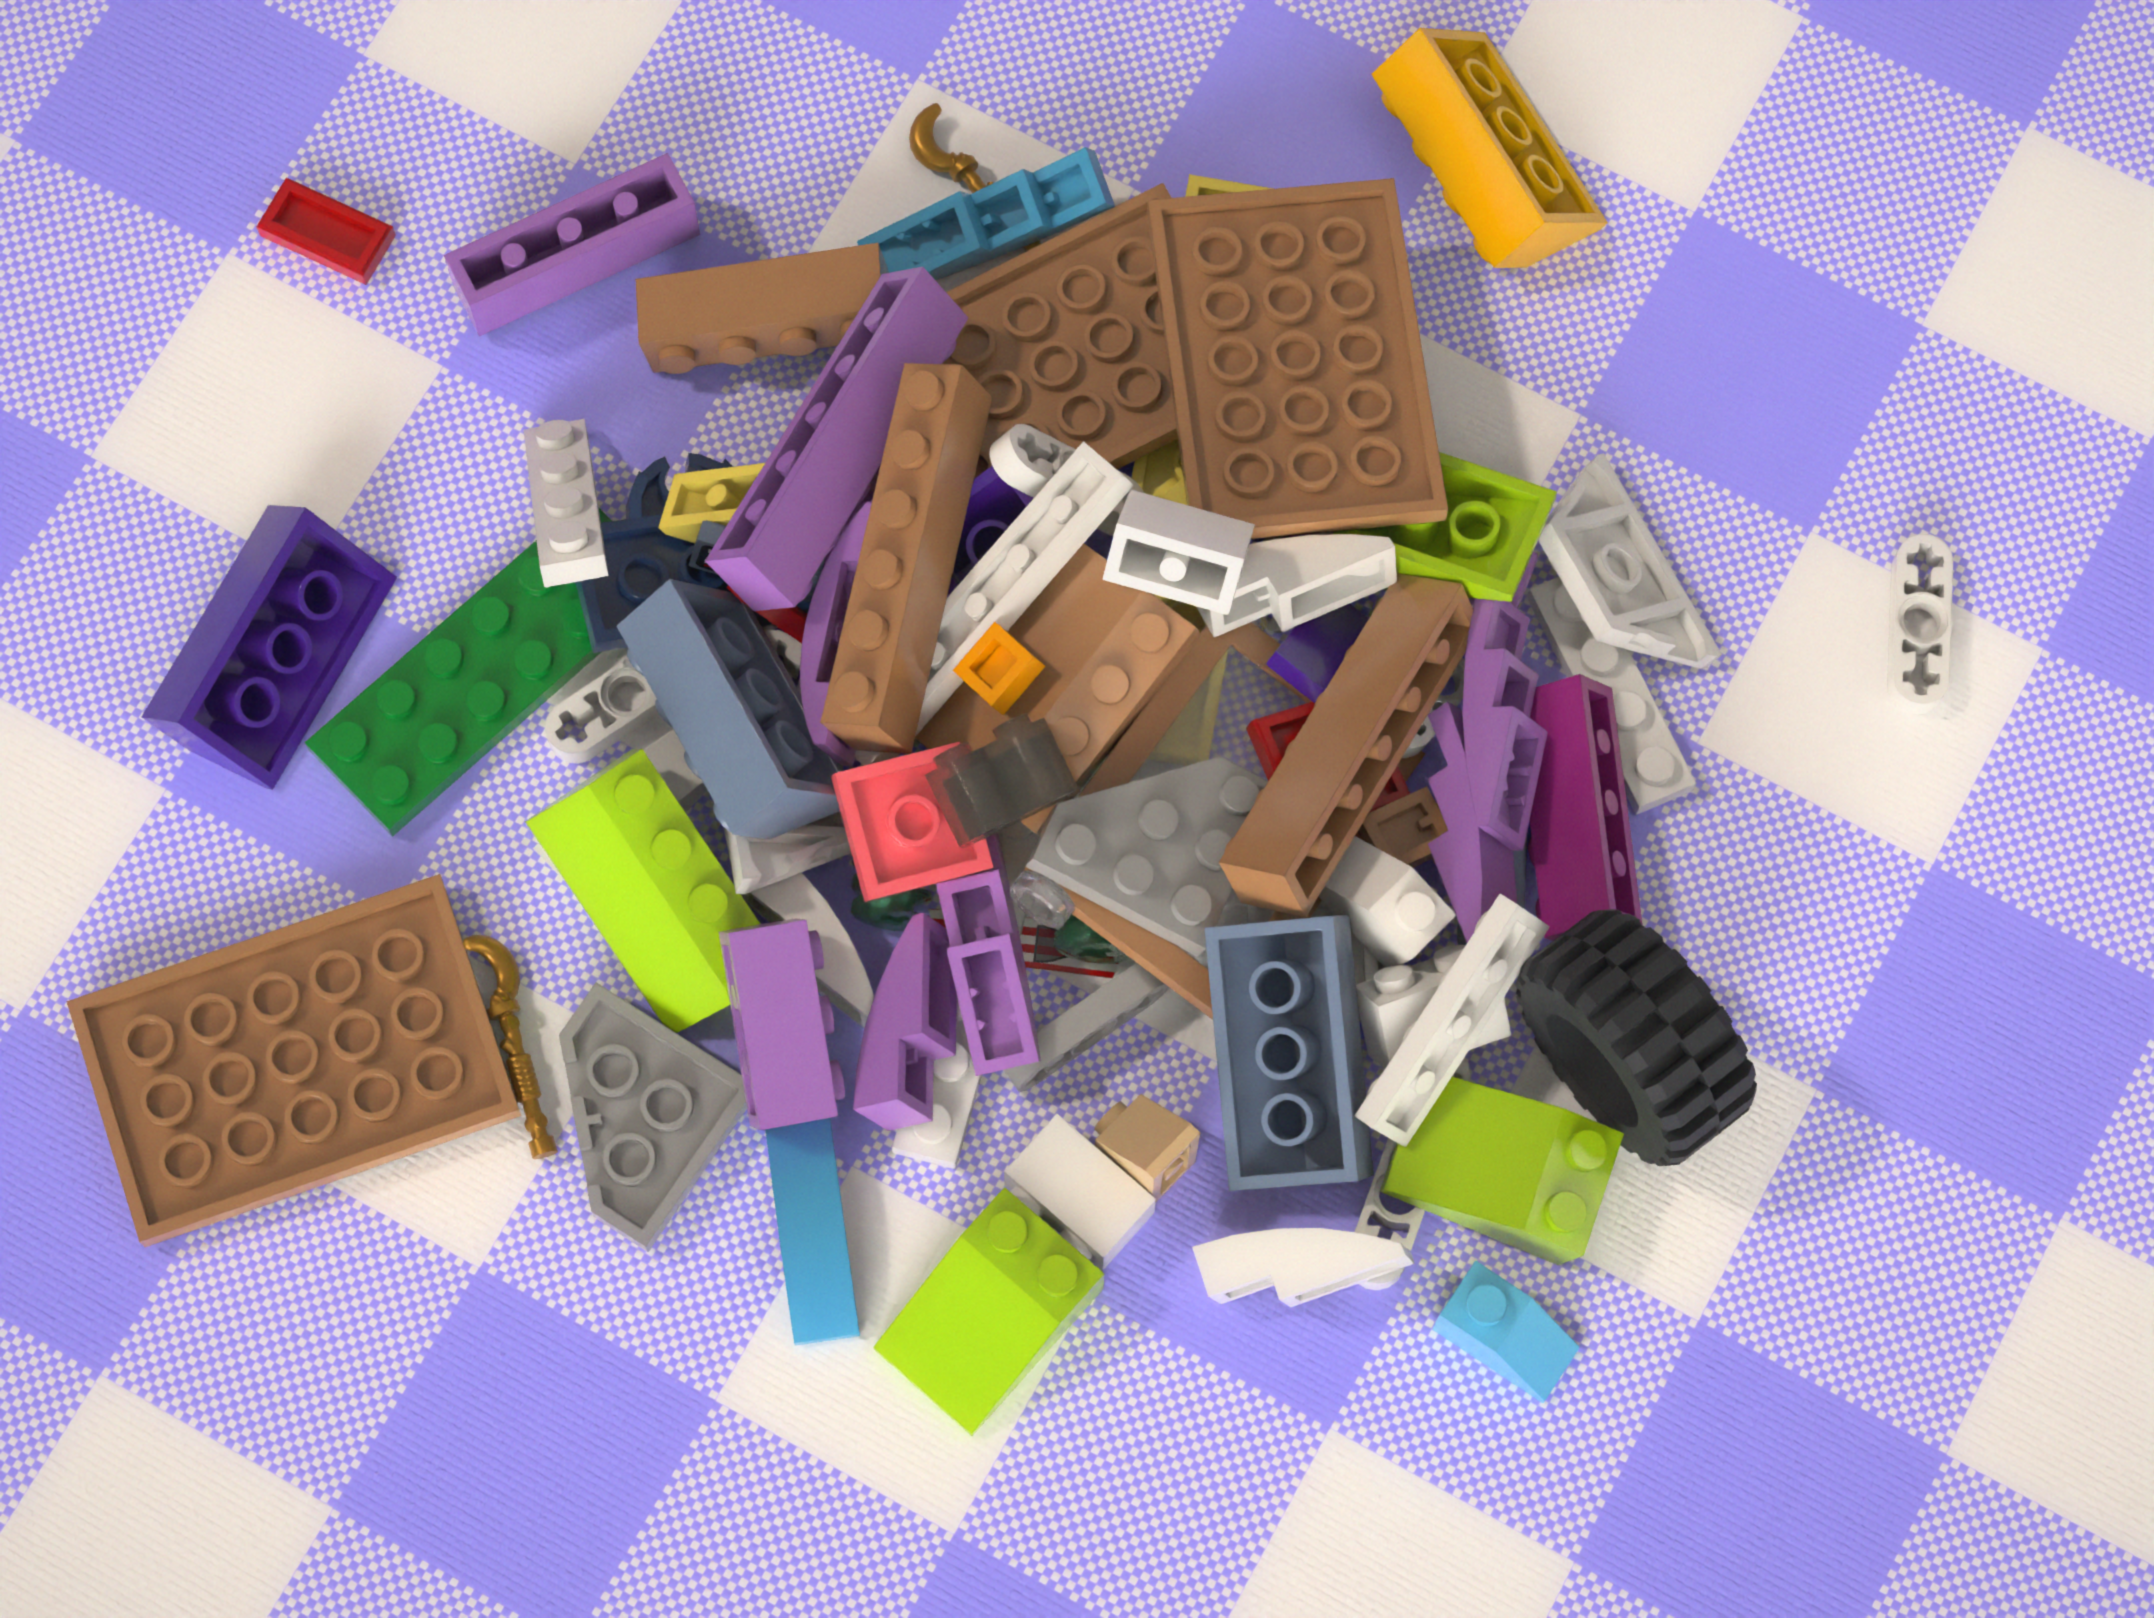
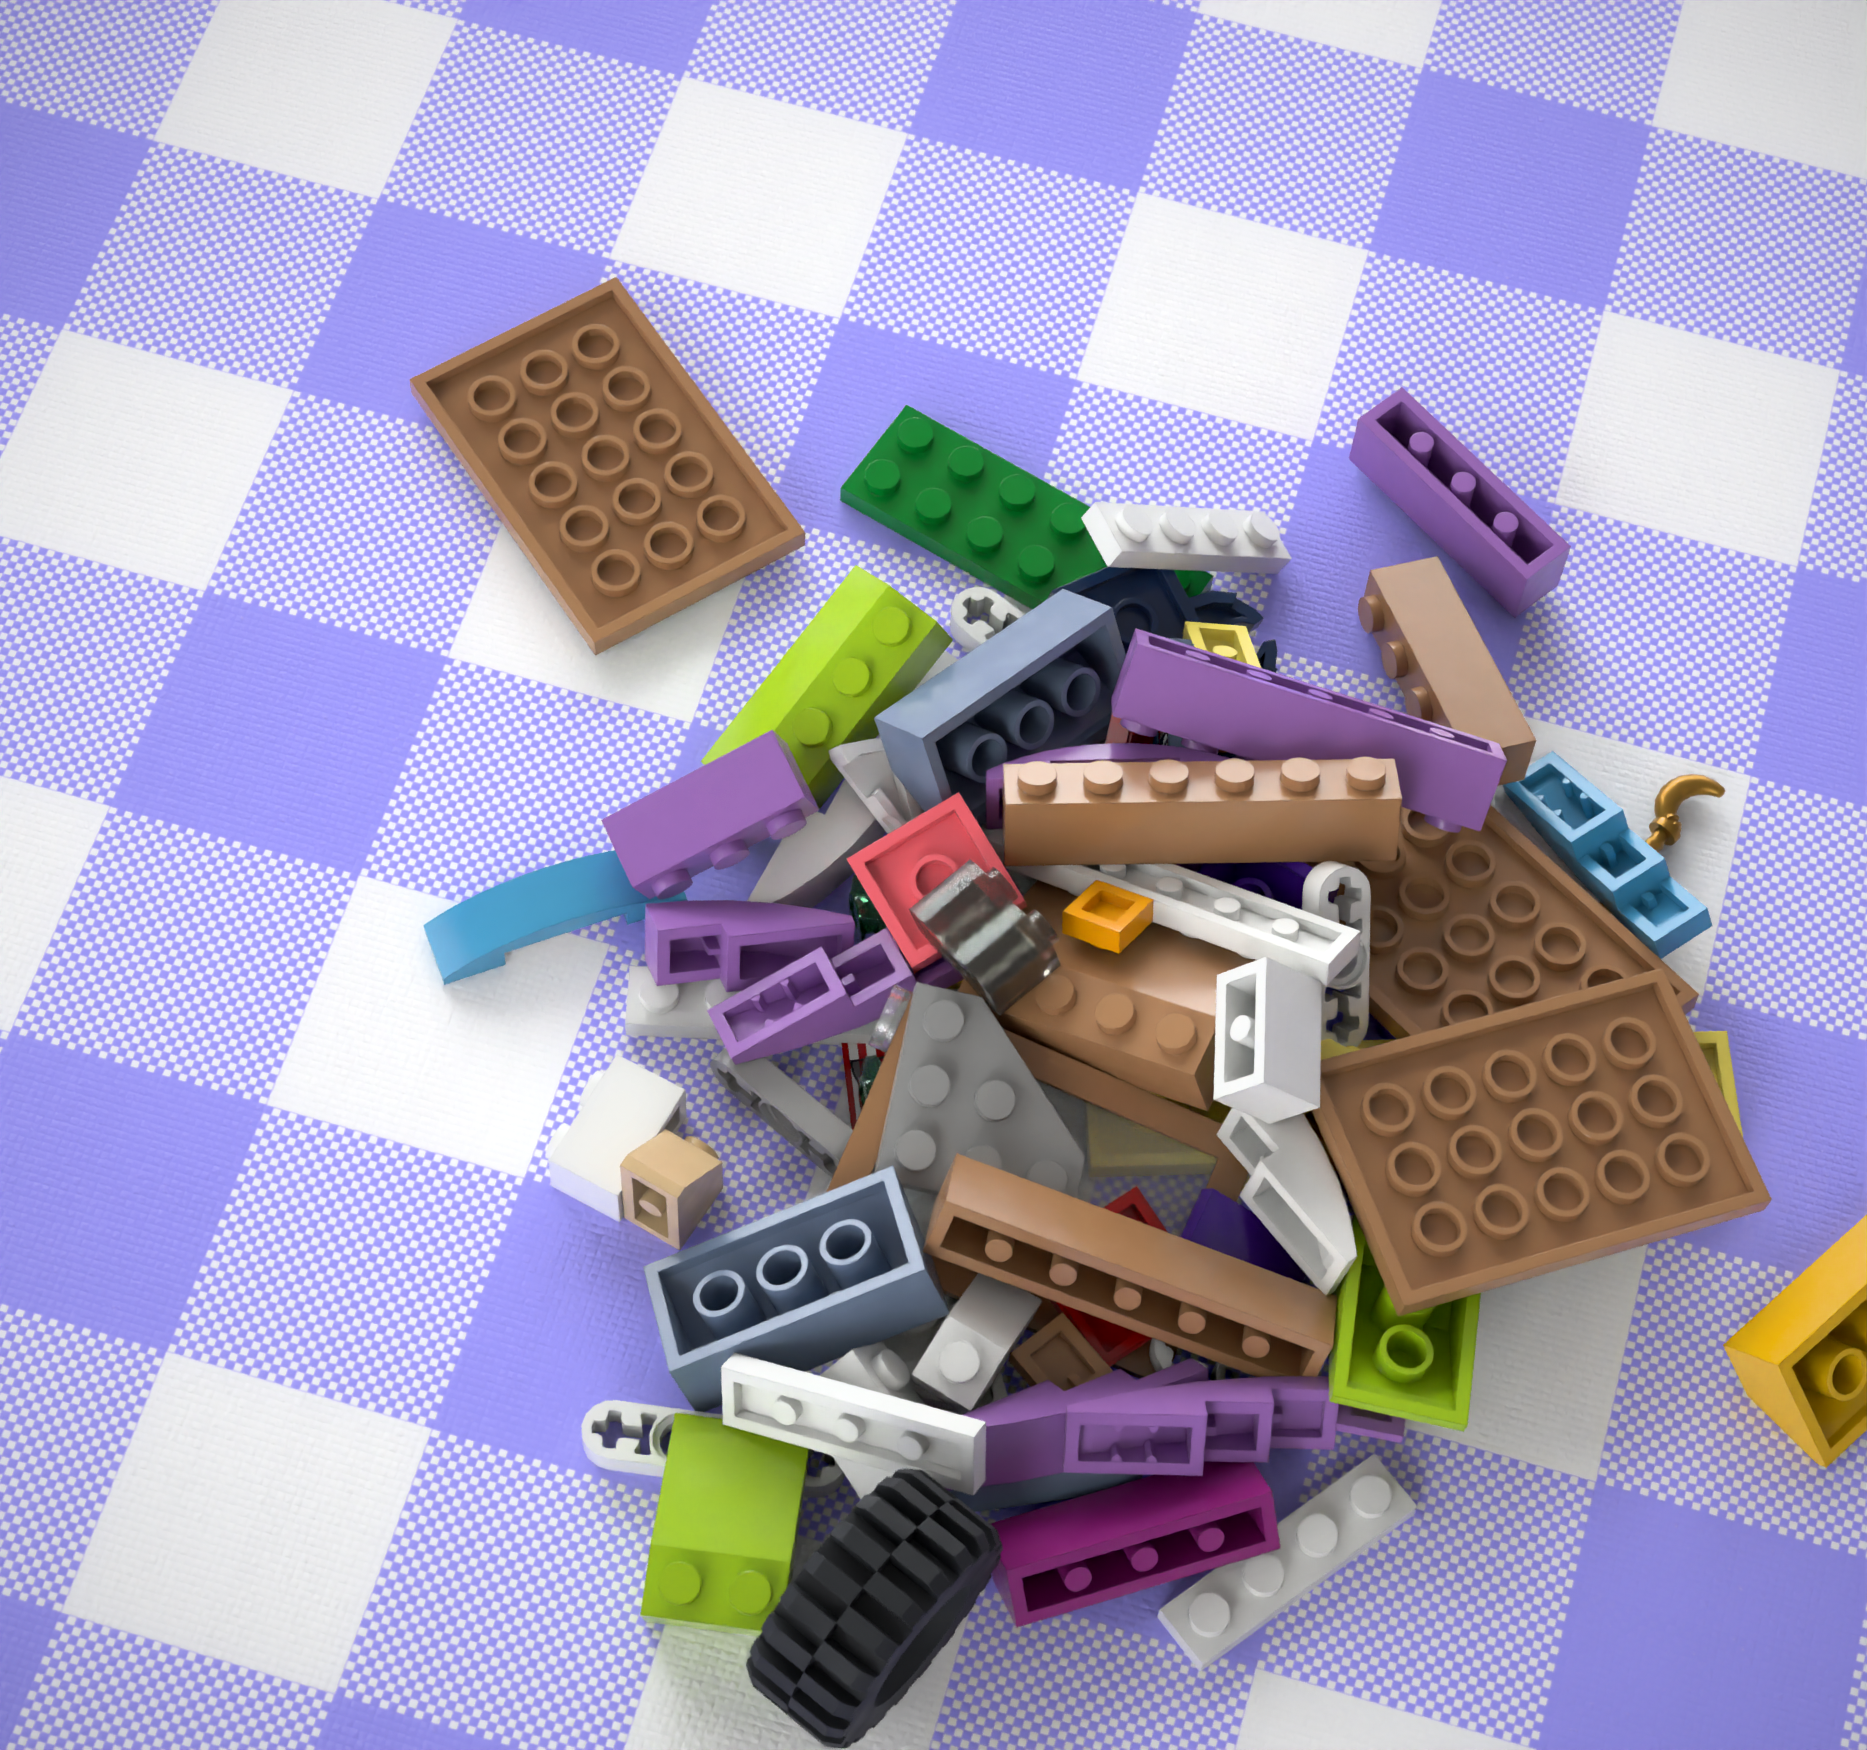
camera: 75 degrees right, 10 degrees down
(270, 645) = (989, 357): dark purple slope -> none
(326, 231) = (1413, 317): red tile -> none
(519, 1064) = (692, 615): pearl gold piece -> none
(643, 1112) = (612, 742): light grey plate -> none
(990, 1311) = (485, 1084): lime slope -> none
(1295, 1261) = (580, 1343): white slope -> none
(1506, 1332) = (555, 1569): medium azure slope -> none
(1620, 572) = (1415, 1535): white wing -> none

